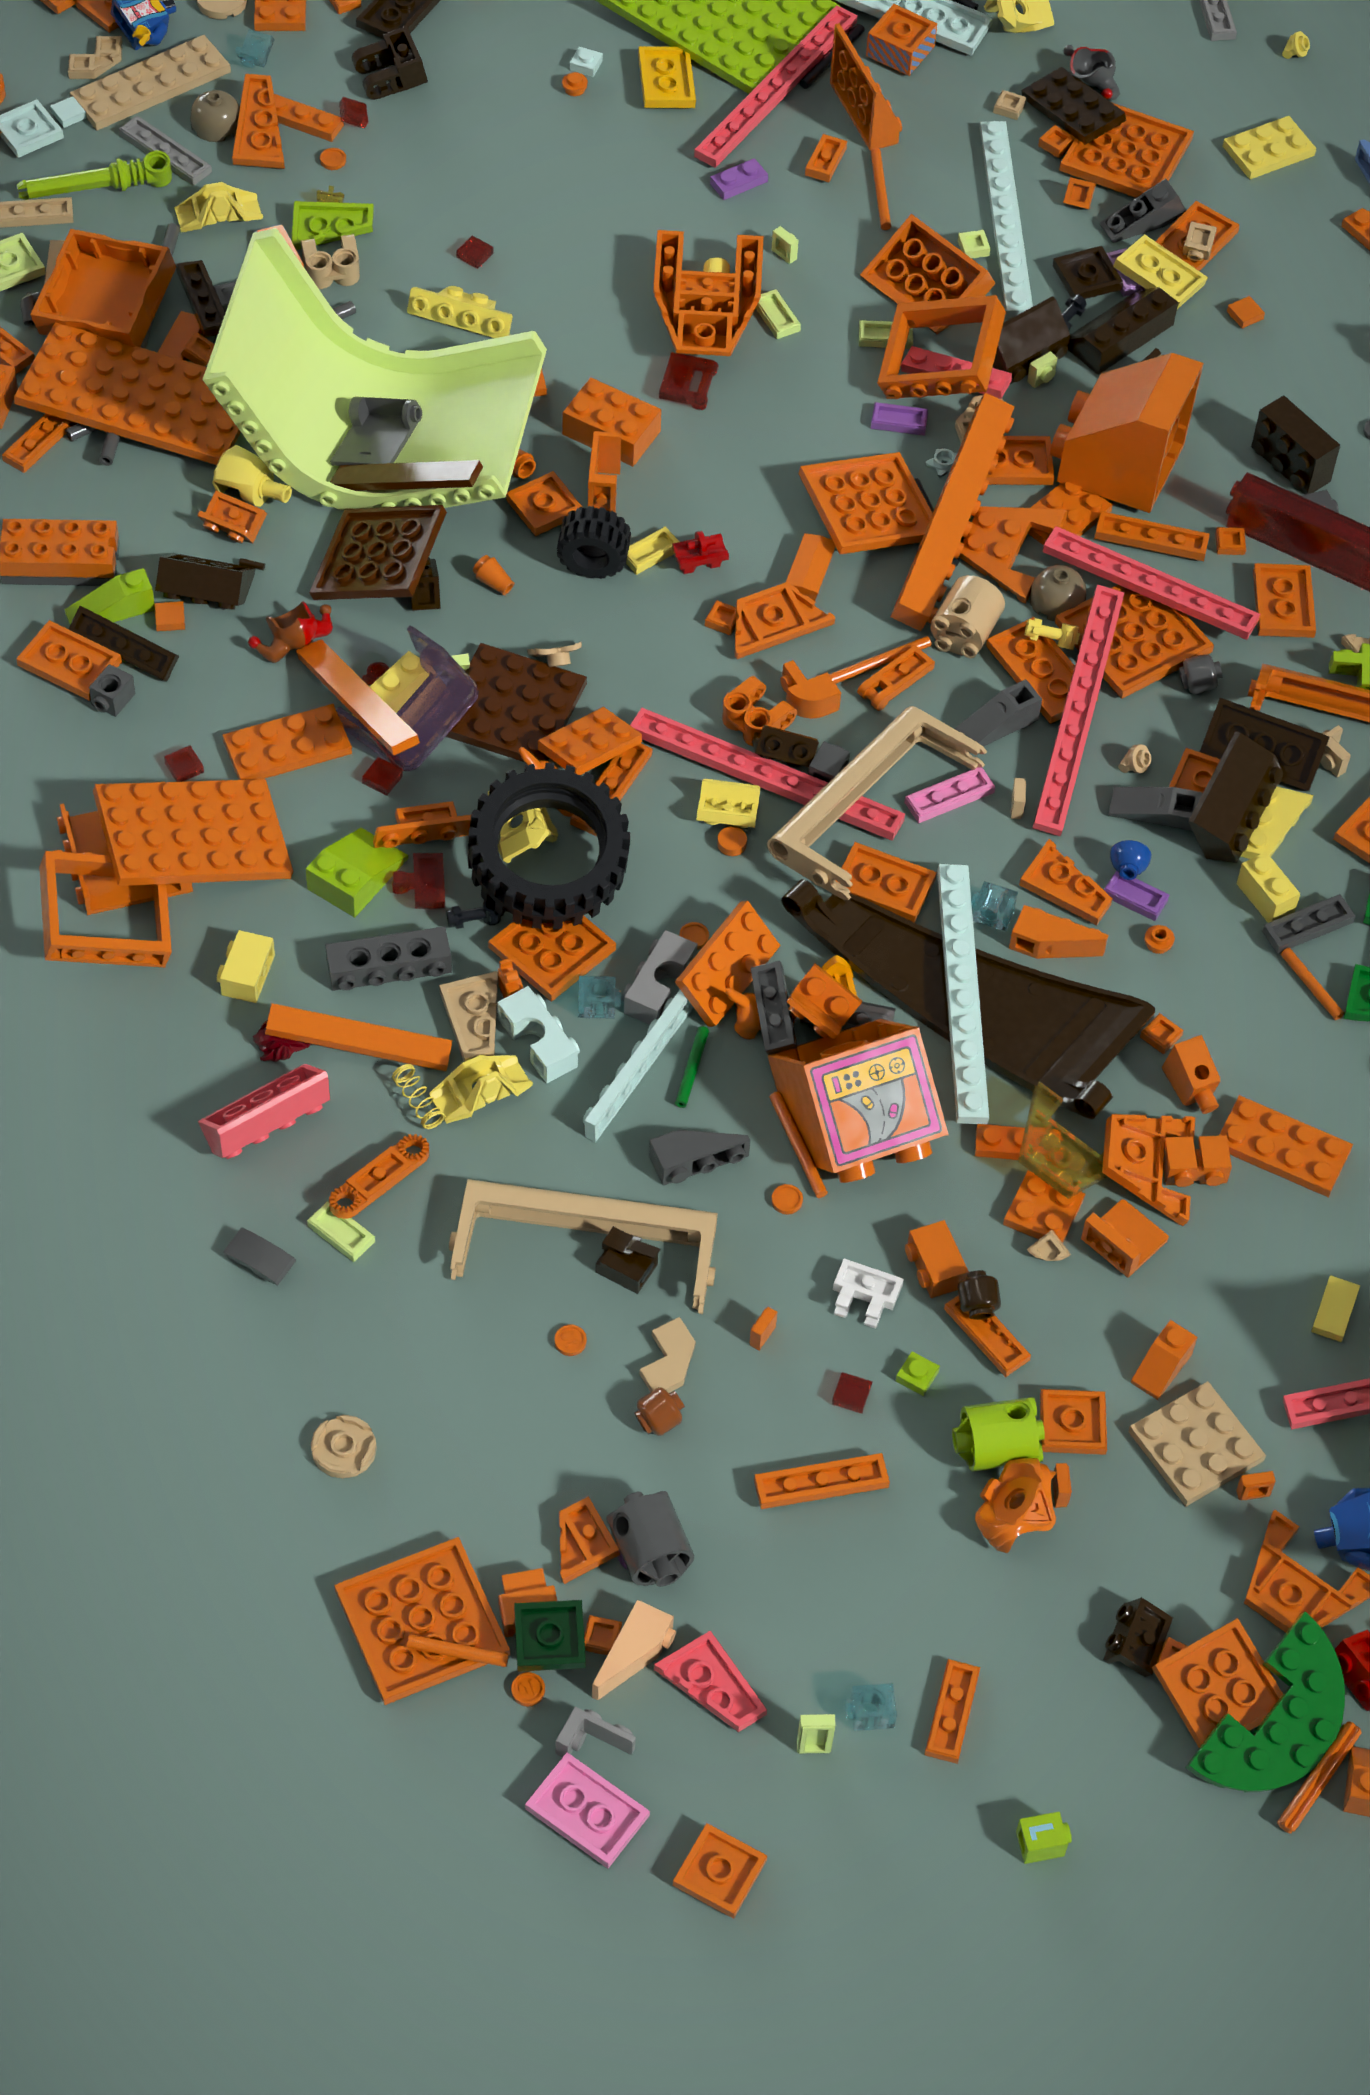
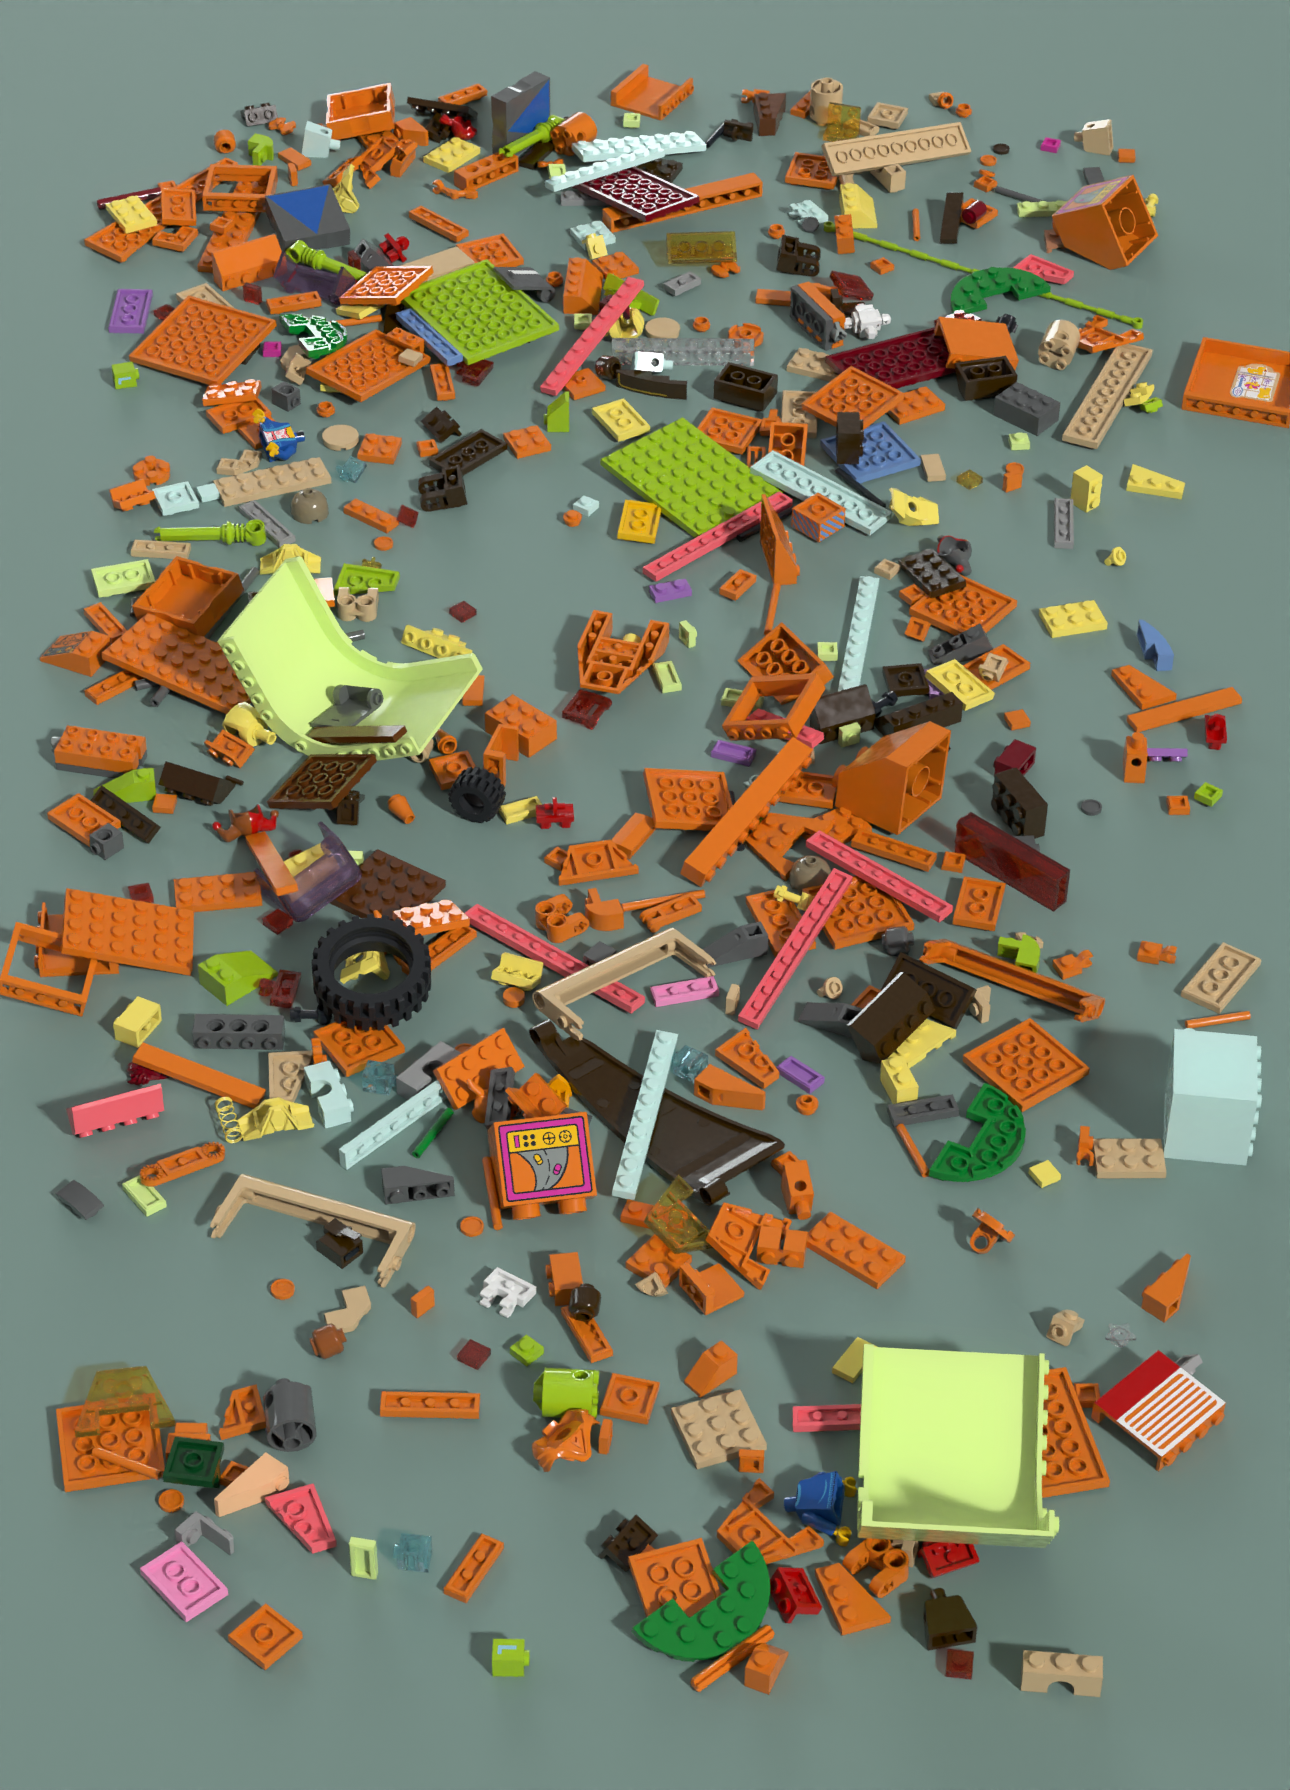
camera: 15 degrees right, 15 degrees down
(257, 127) = (335, 516): orange wing -> none
(343, 1446) = (96, 1328): tan tile -> none
(421, 1545) = (123, 1392): none -> clear yellow wing
(423, 824) = (287, 953): orange bracket -> none
(556, 656) = (429, 863): tan animal -> none
(785, 746) = (569, 938): dark brown bracket -> none
(888, 880) = (617, 1037): orange plate -> none
(967, 616) = (734, 878): tan cylinder -> none
(1130, 858) = (801, 1047): blue brick -> none
(1264, 377) = (1015, 755): none -> dark red brick

